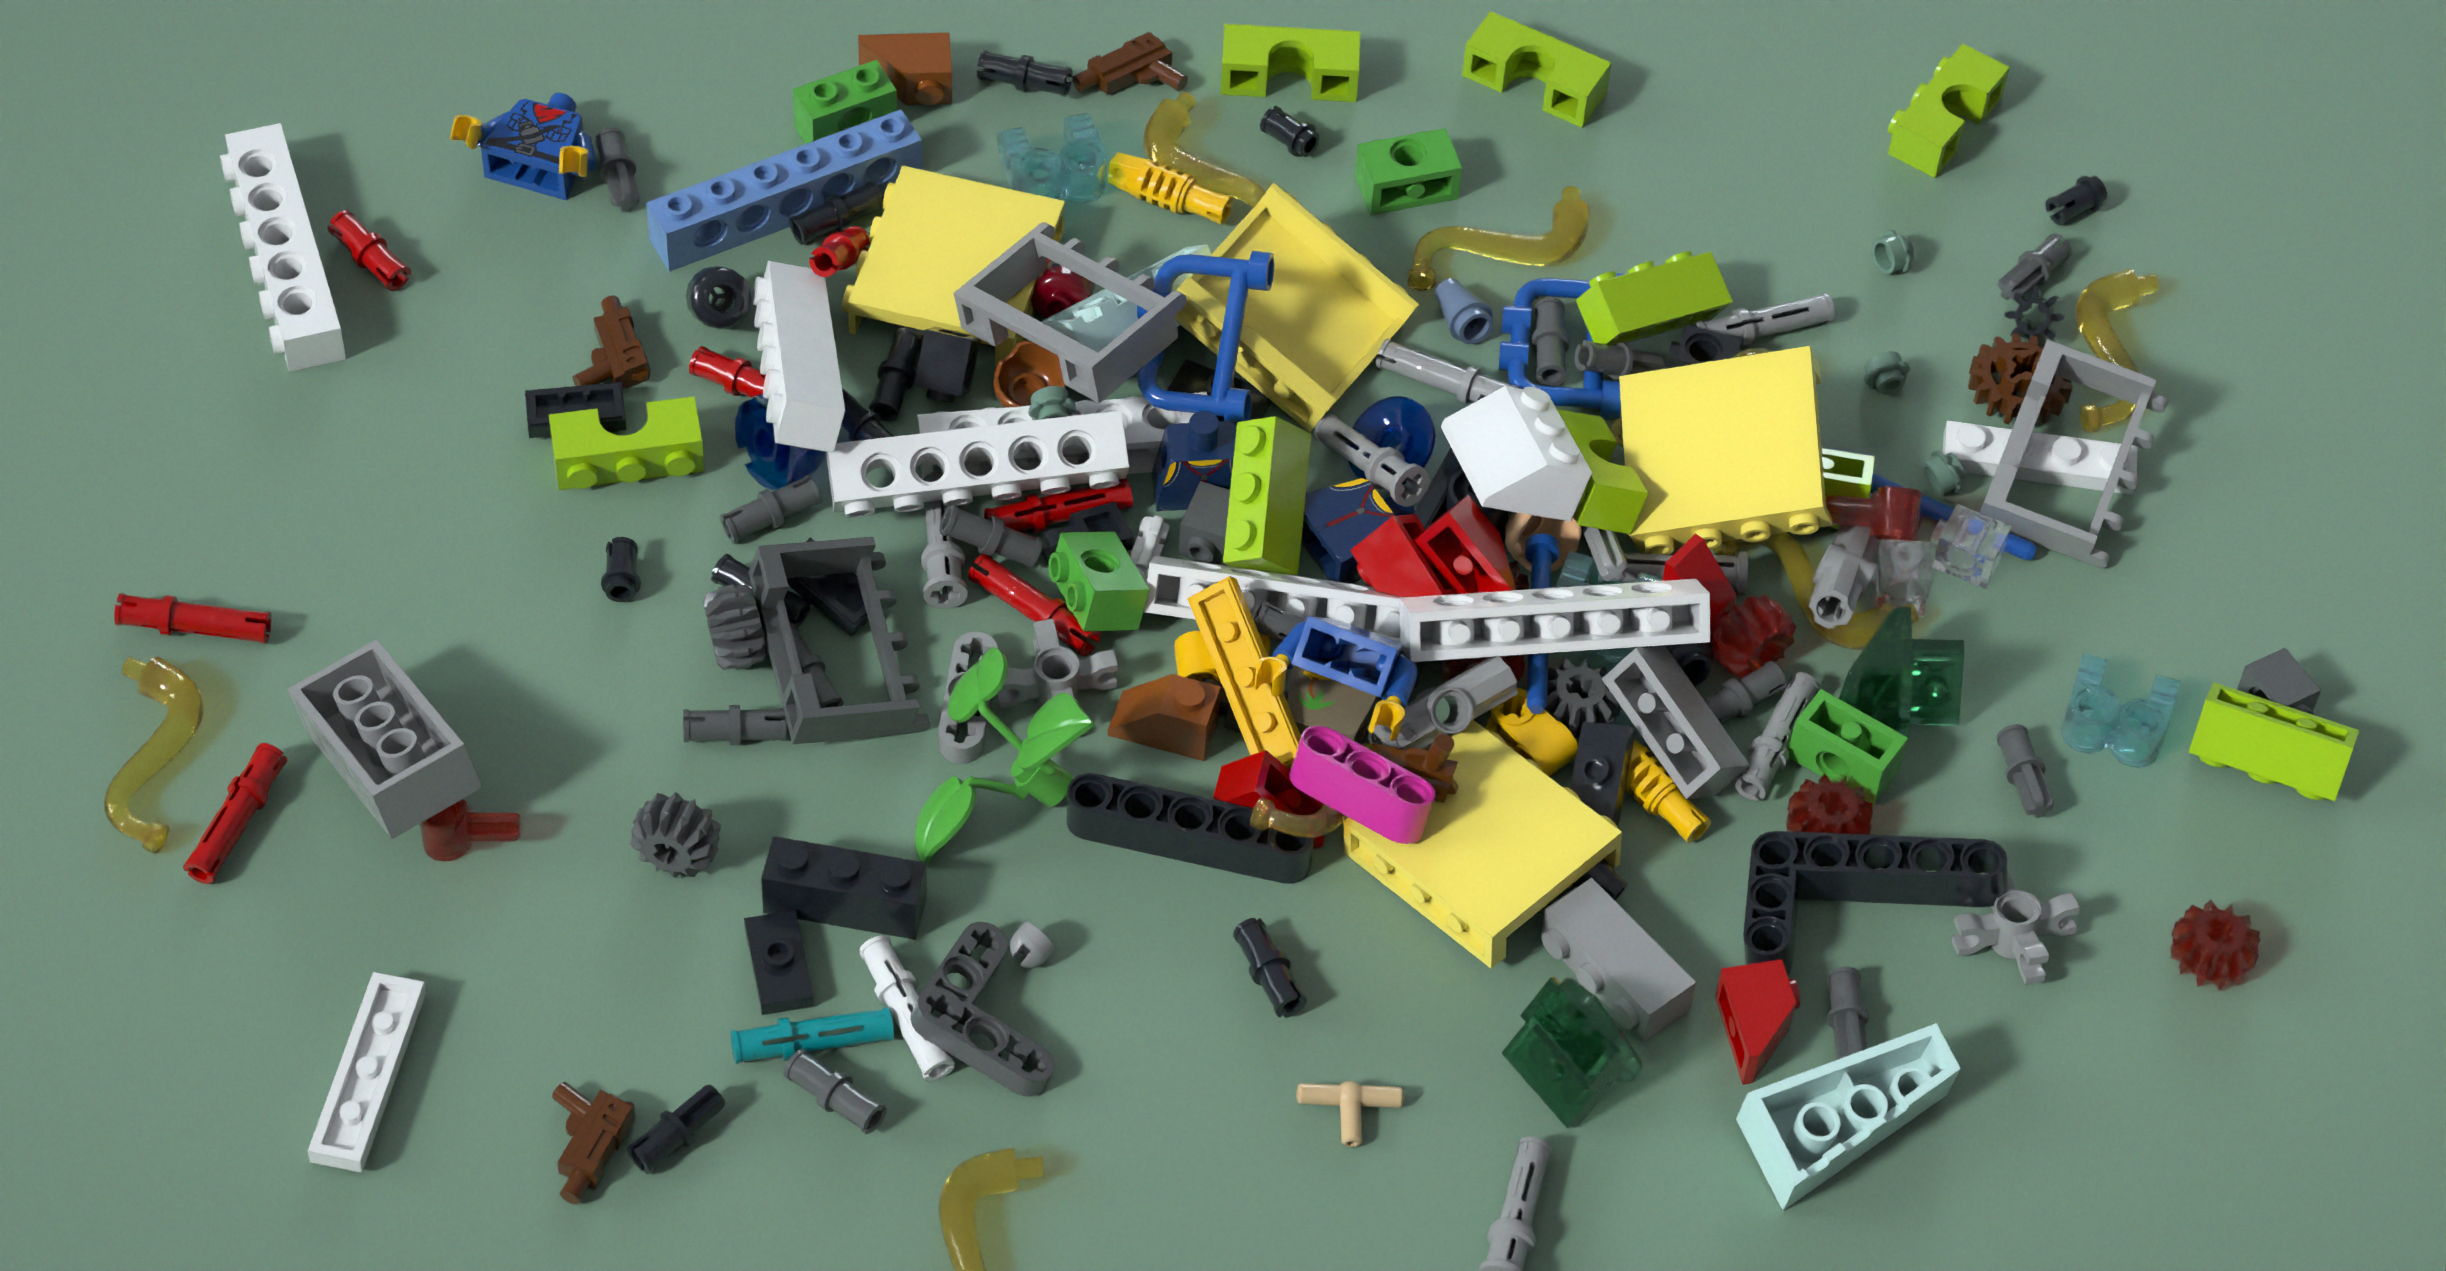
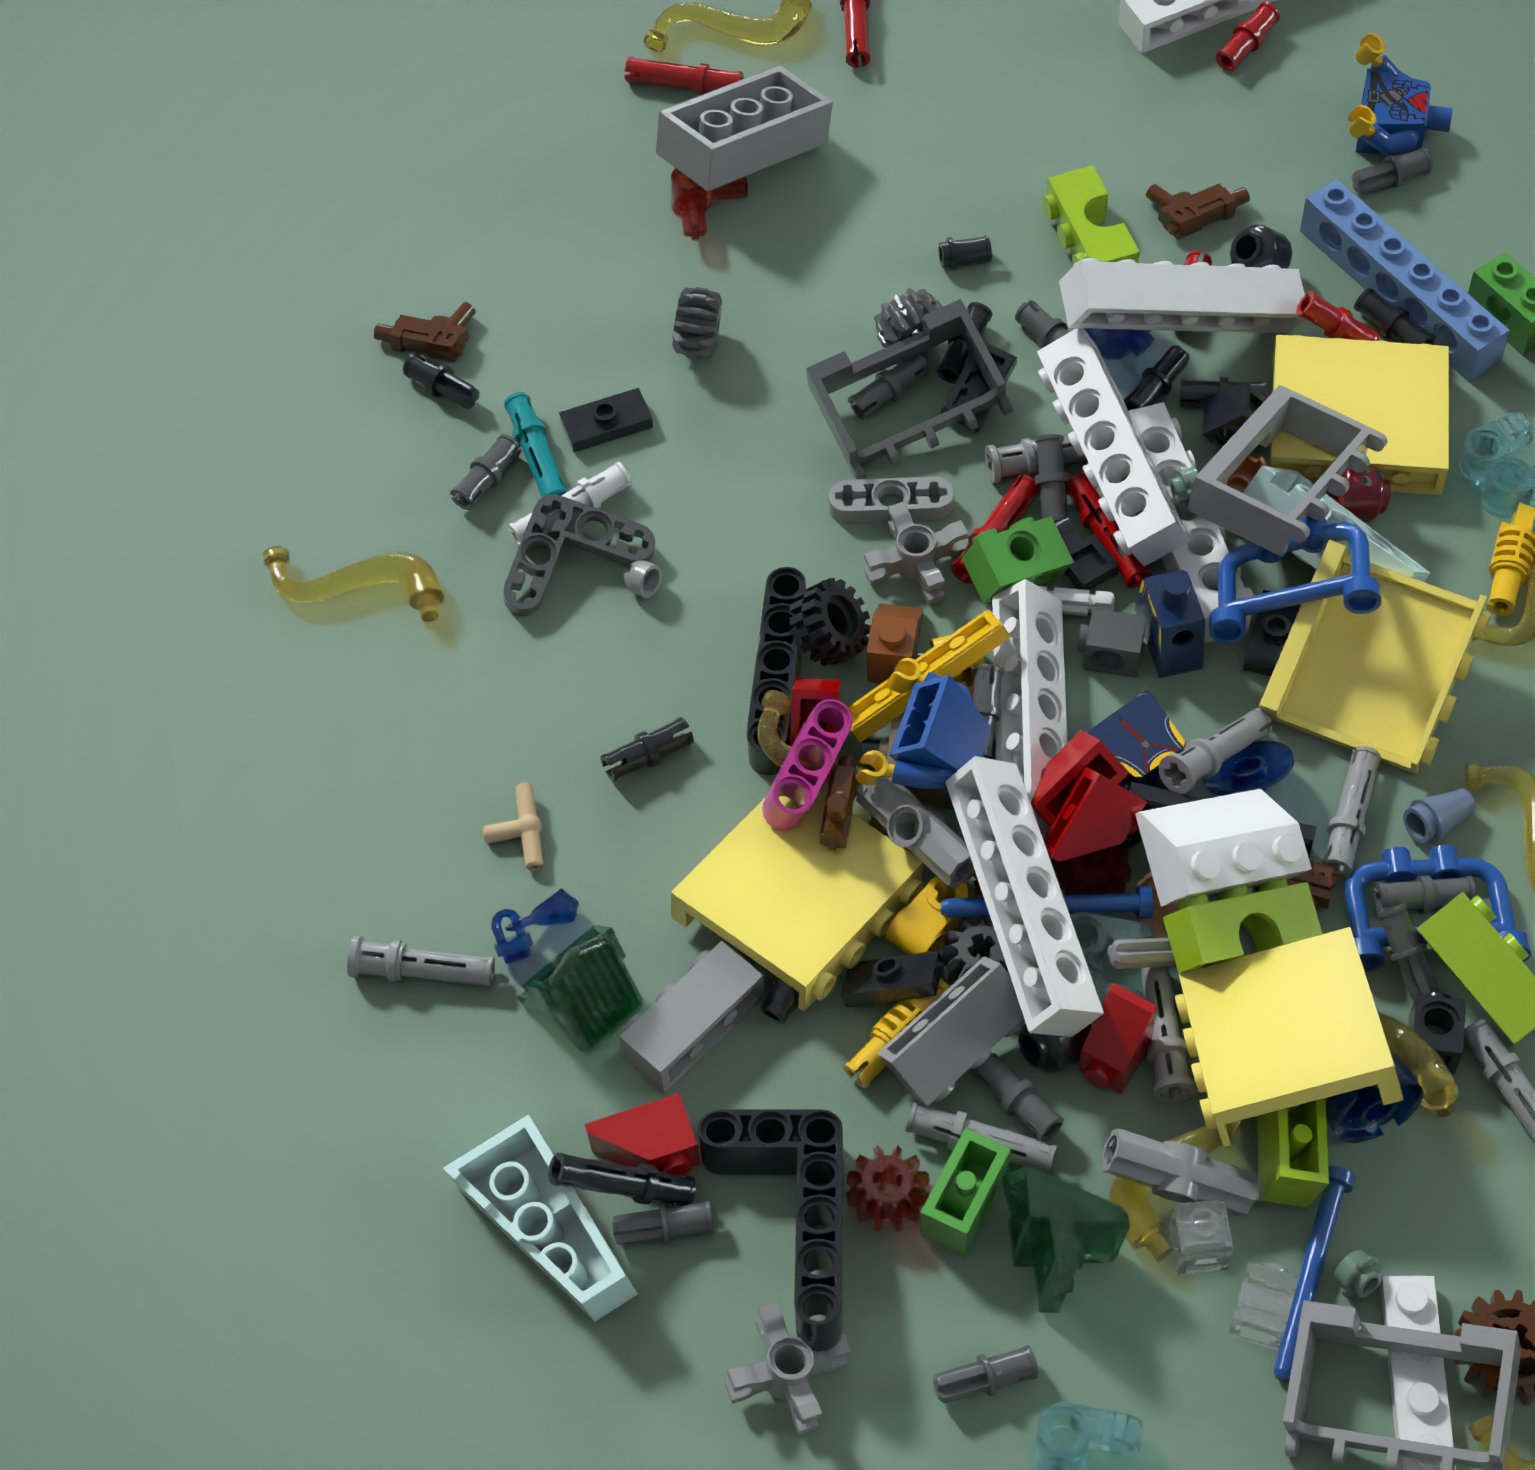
camera: 90 degrees right, 5 degrees up
(367, 1072) = (468, 194): white plate -> none
(605, 397) = (1126, 195): black plate -> none
(734, 725) = (821, 336): dark grey pin -> none
(845, 887) = (671, 442): black brick -> none
(1049, 731) = (806, 547): bright green plant -> none
(1149, 760) = (830, 621): none -> black tyre
(1267, 496) = (1131, 662): lime brick -> none
(1505, 1117) = (557, 909): none -> clear blue piece
(1753, 635) = (1083, 1097): clear red gear -> none
(1819, 1025) = (640, 1183): none -> black pin
(1886, 372) = (1483, 1212): sand green plate -> none
(1889, 513) = (1257, 1203): clear red axle -> none

